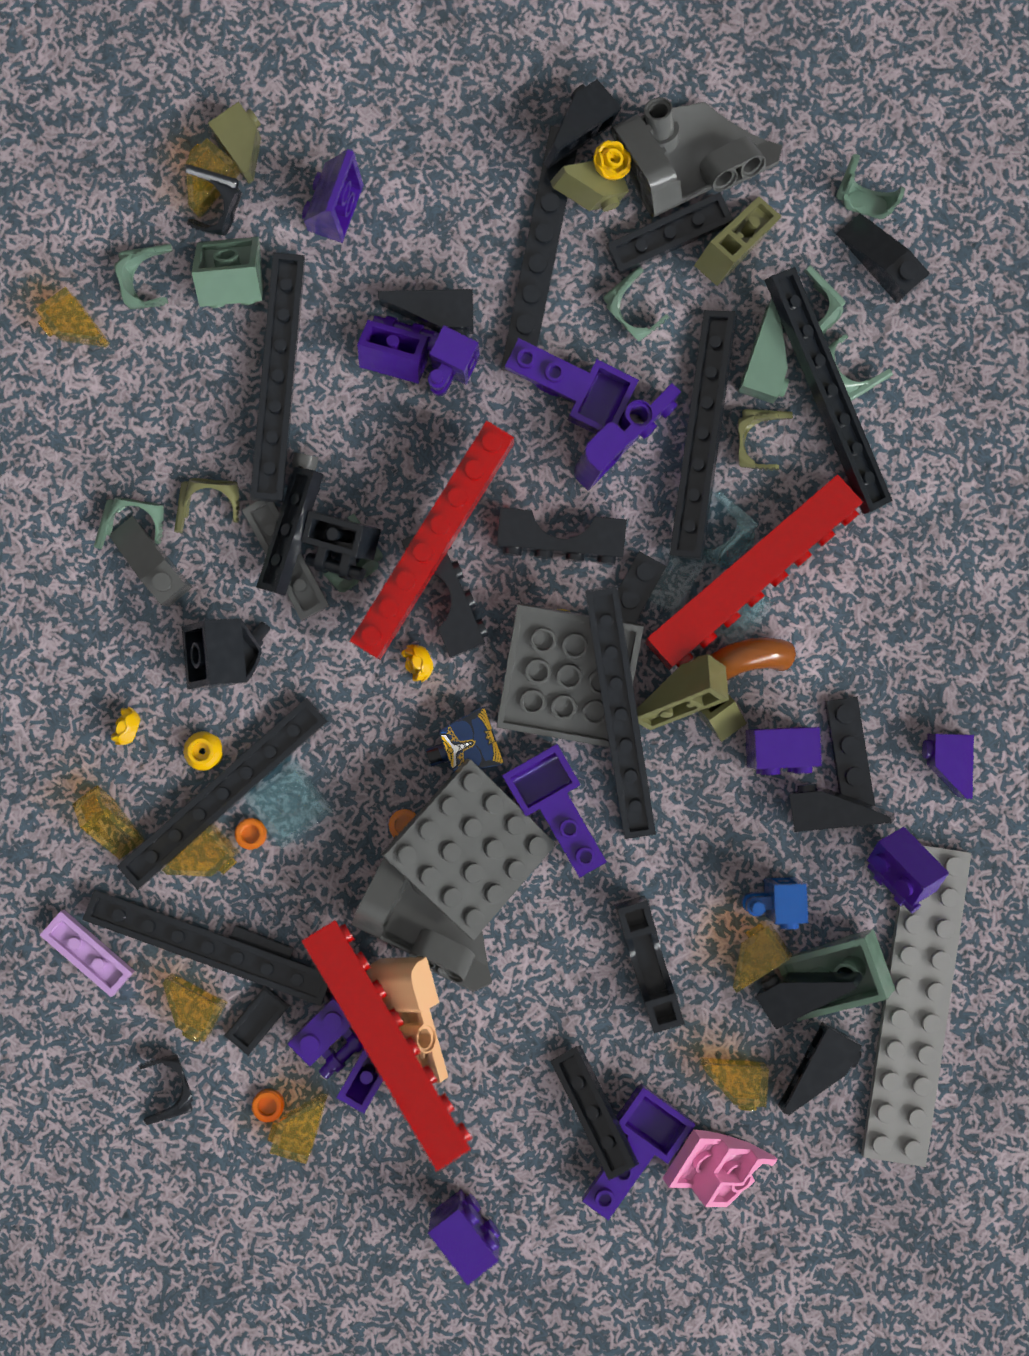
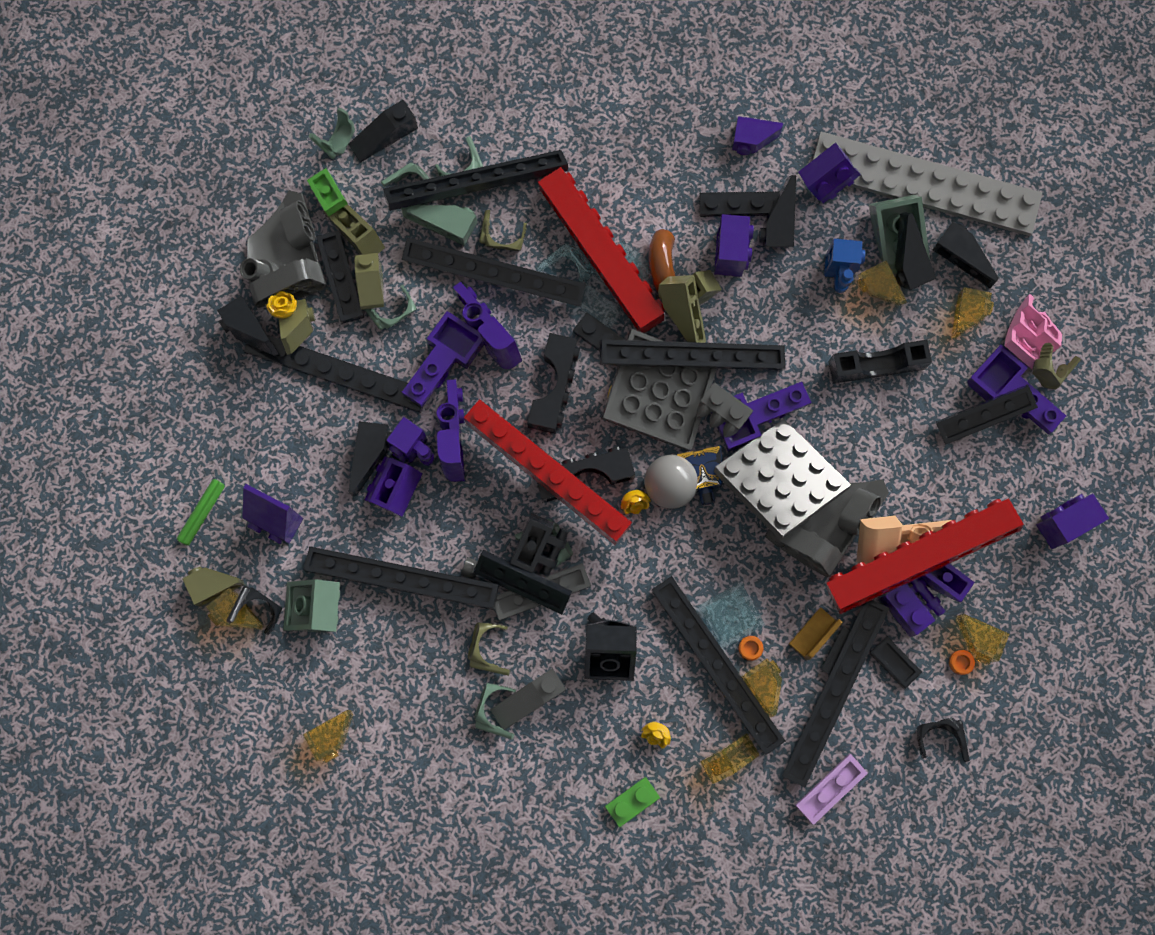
camera: 85 degrees left, 10 degrees down
(41, 707) = (632, 802): none -> bright green plate
(125, 270) = (290, 685): sand green helmet -> none
(192, 1008) = (882, 708): clear yellow slope -> none
(212, 755) = (676, 682): yellow plate -> none
(277, 914) = (814, 634): none -> pearl gold panel
(331, 111) = (200, 512): none -> bright green axle
(400, 820) = (755, 530): orange tile -> none
(449, 705) = (671, 481): none -> light grey piece
(452, 413) = (449, 438): none -> dark purple plate
(553, 763) = (724, 409): none -> dark grey plate
(666, 271) = (369, 280): none -> olive slope
(669, 1185) = (1044, 370): none -> olive helmet
(784, 195) = (327, 192): none -> bright green plate

